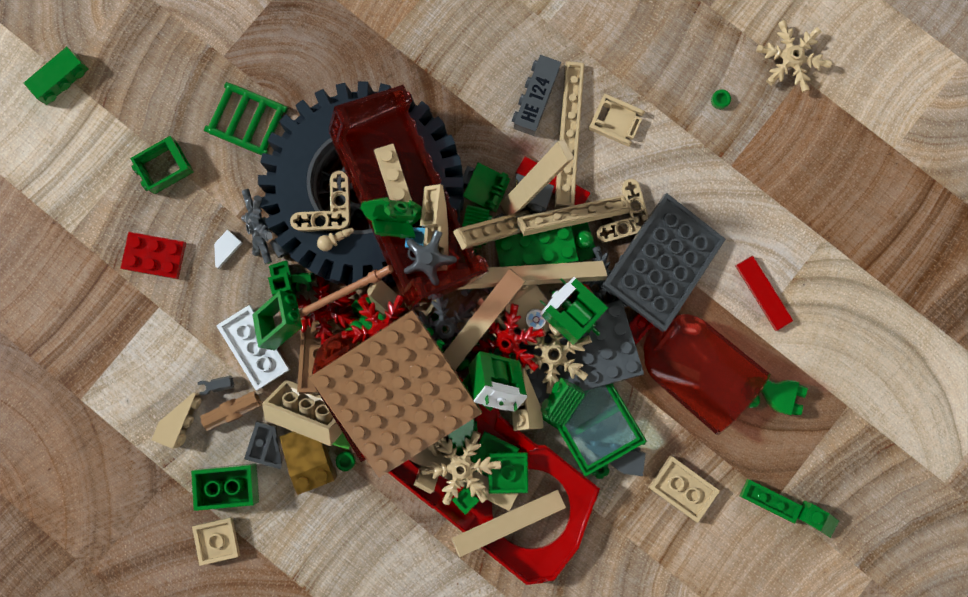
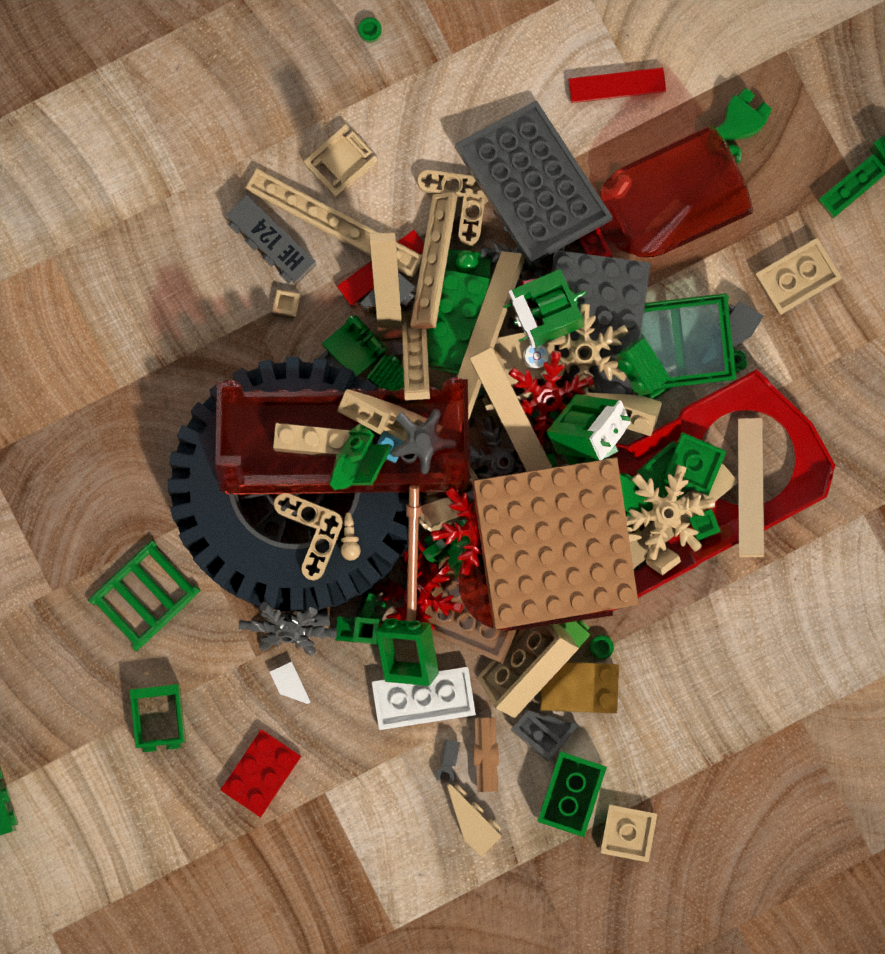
camera: 70 degrees left, 0 degrees up
(497, 126) = (286, 303): none -> tan tile

